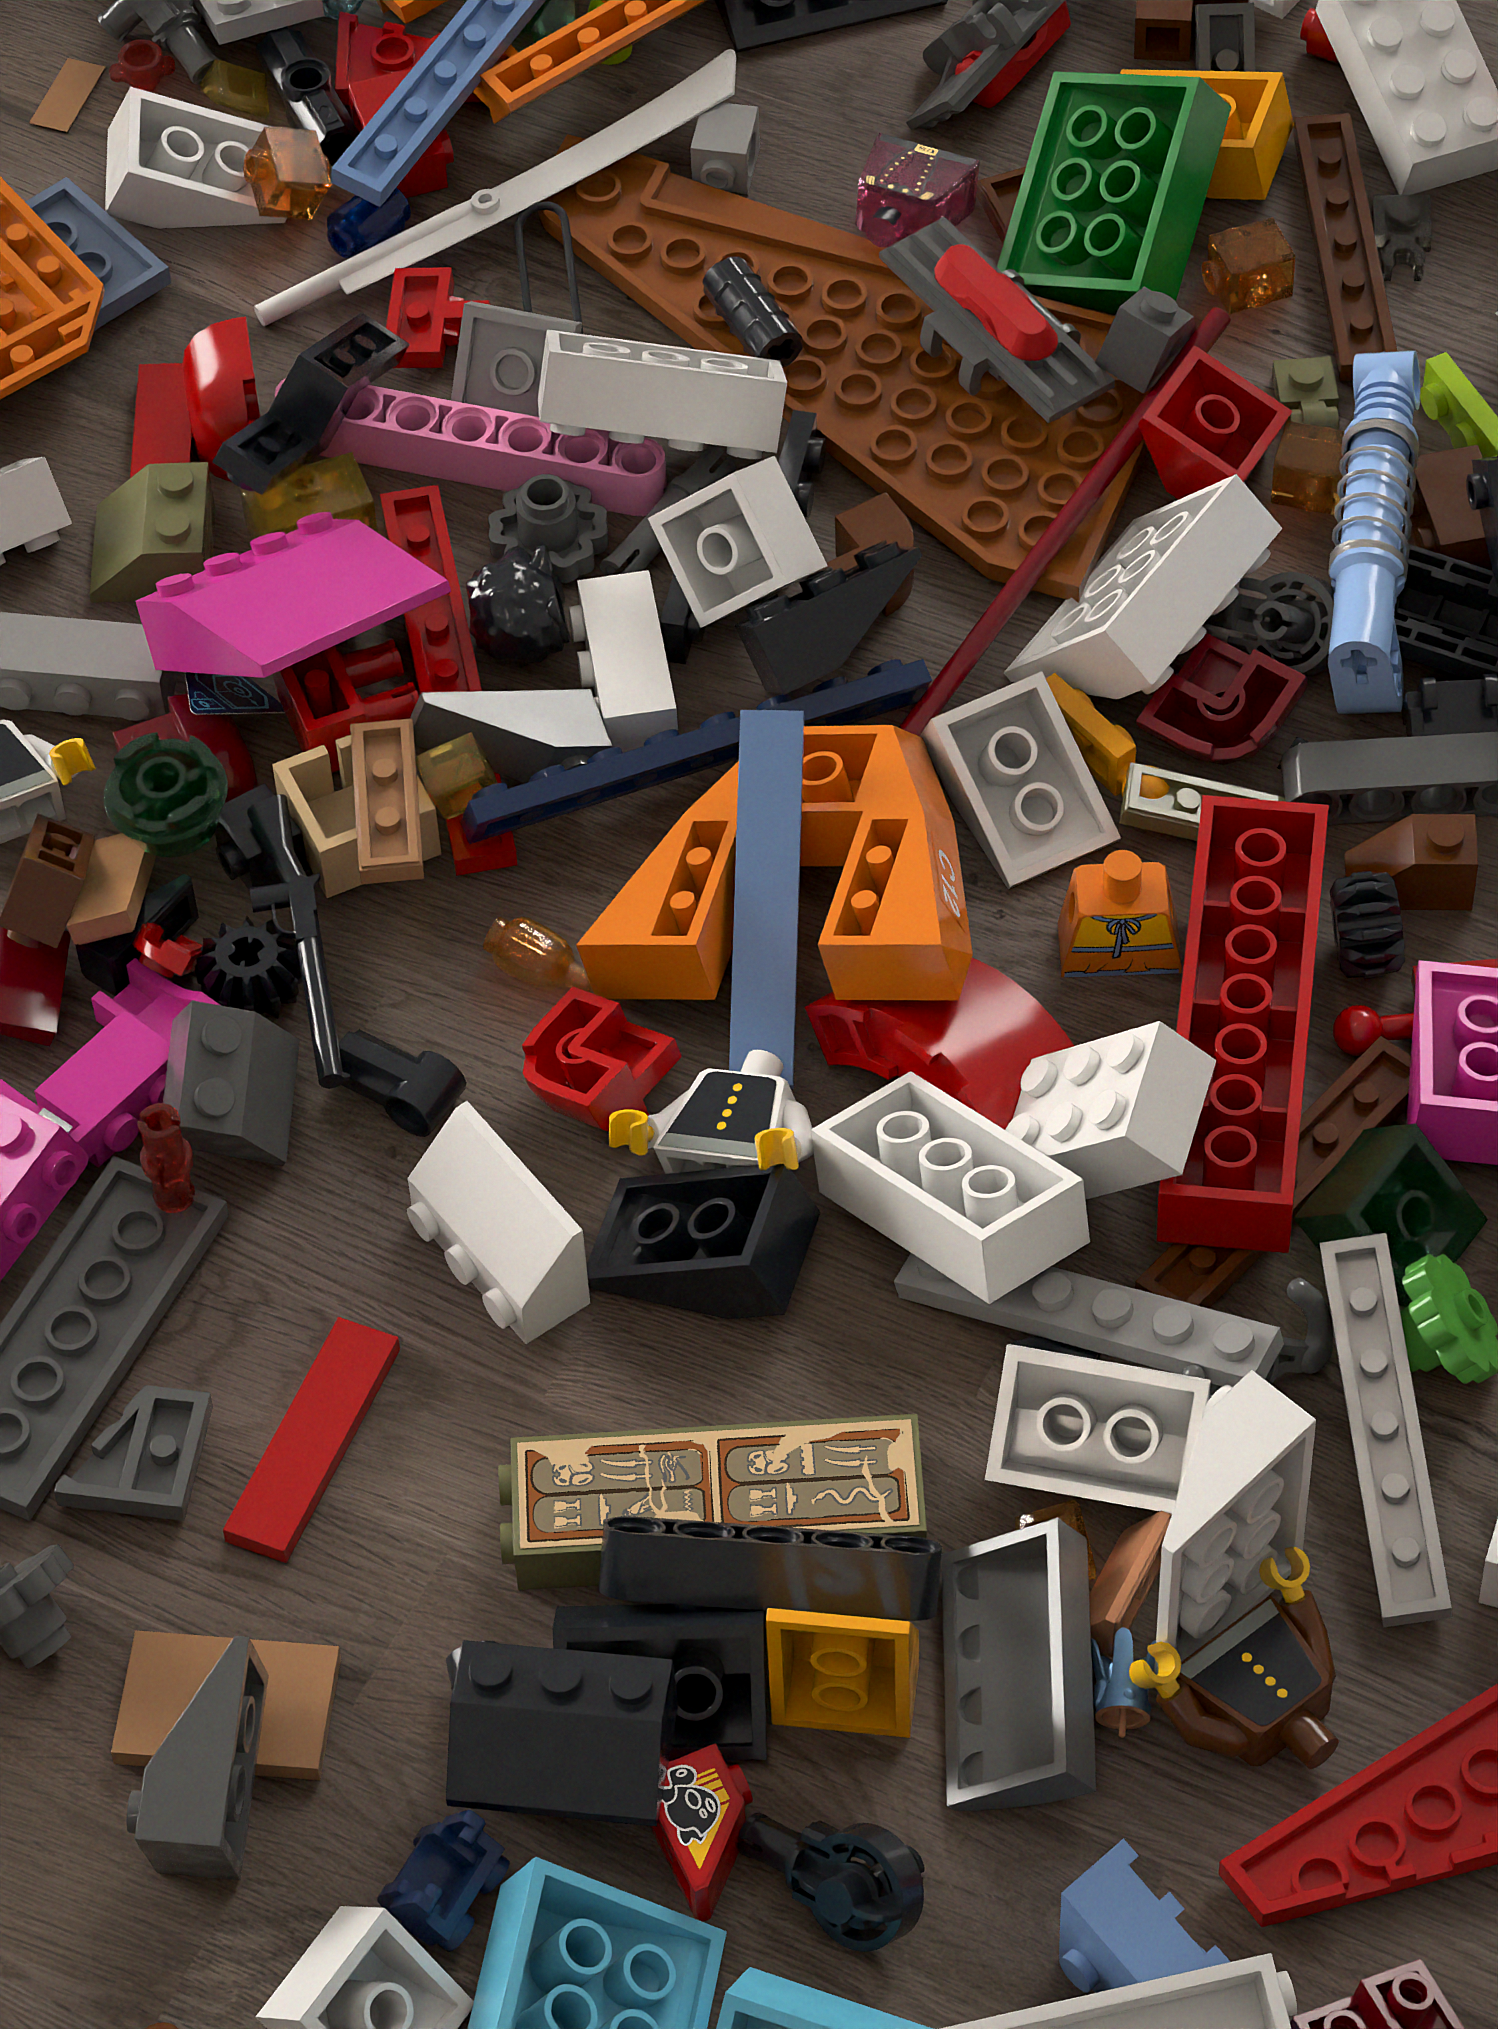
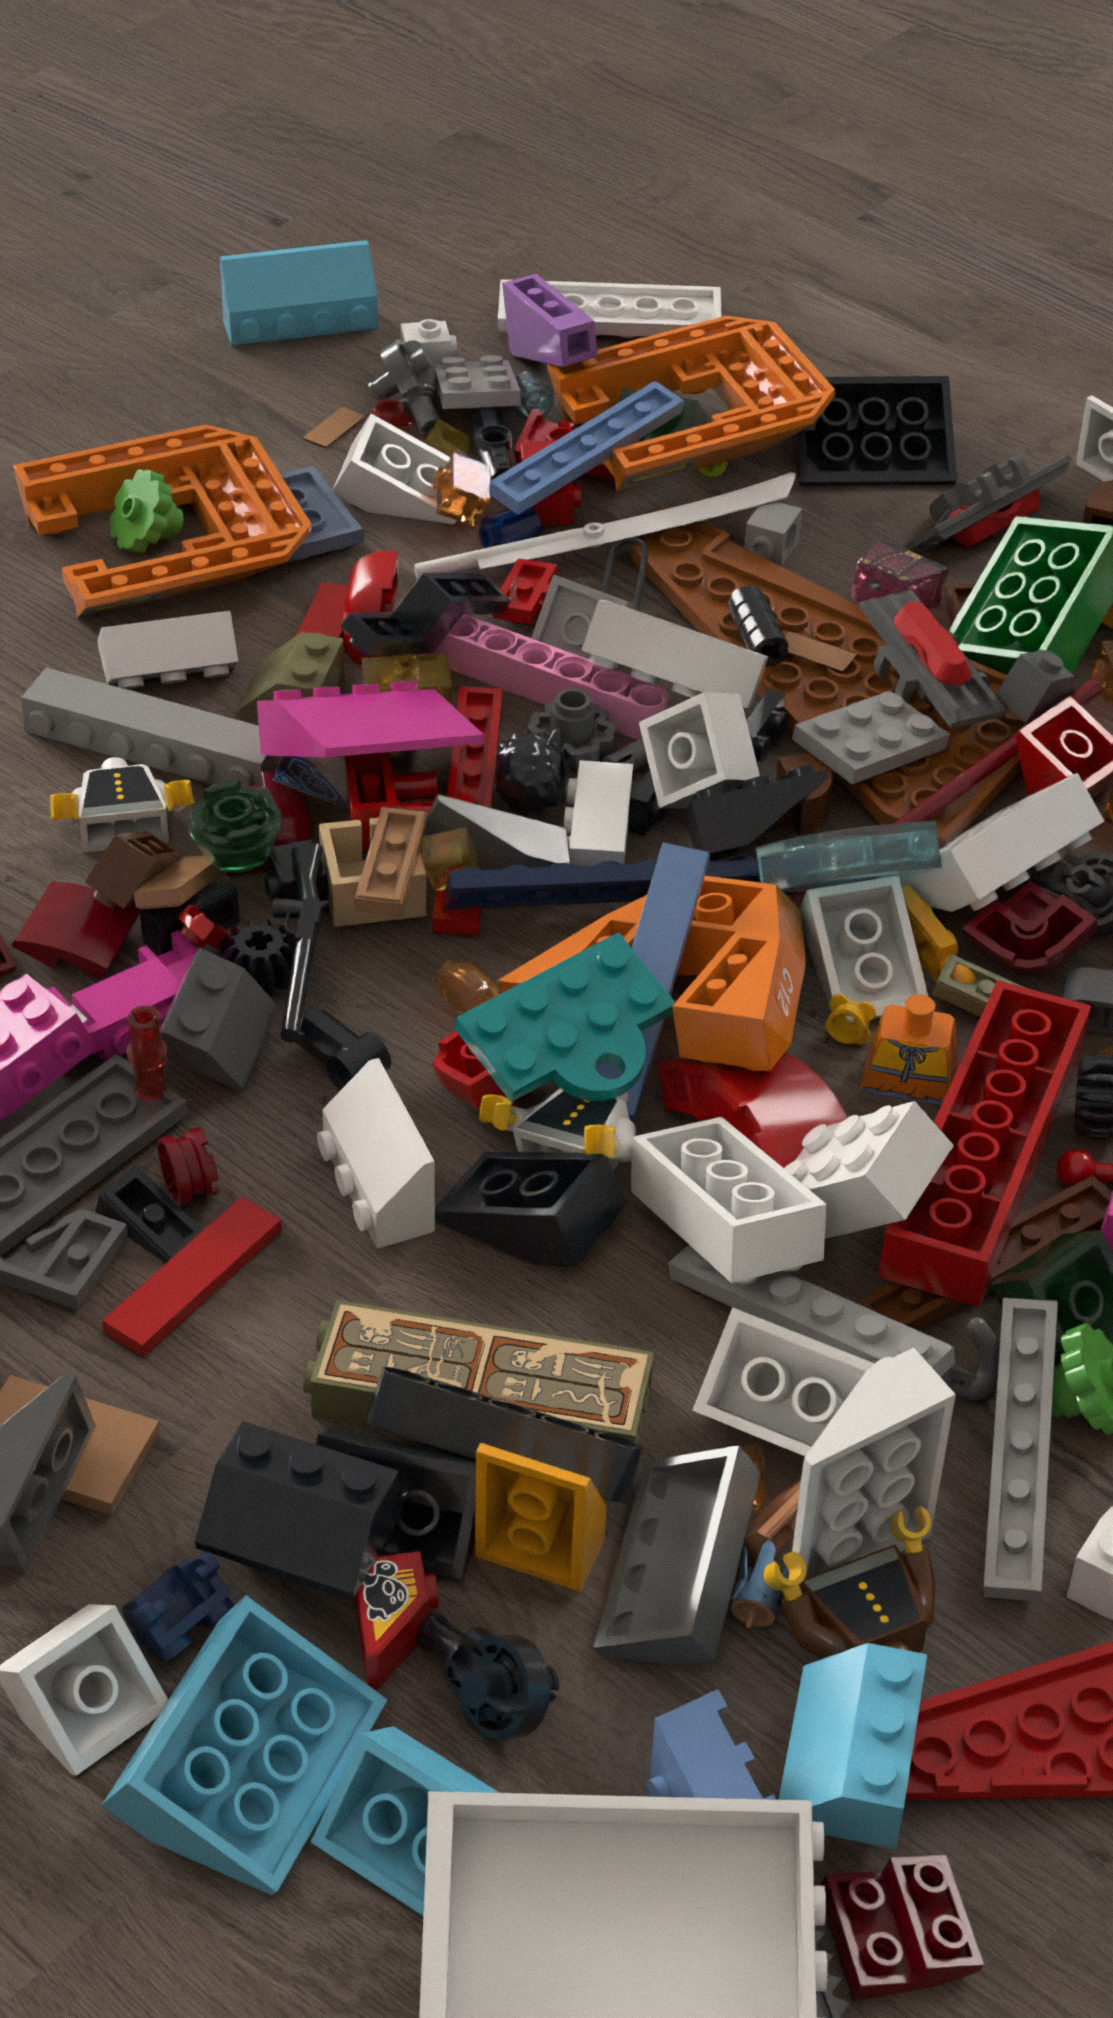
camera: 10 degrees right, 10 degrees down
(233, 1371) = (150, 1215): none -> black slope
(260, 1295) = (187, 1166): none -> dark red wheel
(692, 993) = (569, 1024): none -> teal plate
(840, 330) = (818, 651): none -> medium nougat sticker
(946, 456) = (870, 737): none -> light grey plate
(974, 661) = (850, 856): none -> clear light blue brick
(1016, 892) = (844, 1030): none -> yellow plate
(1288, 1854) = (856, 1741): none -> medium azure slope

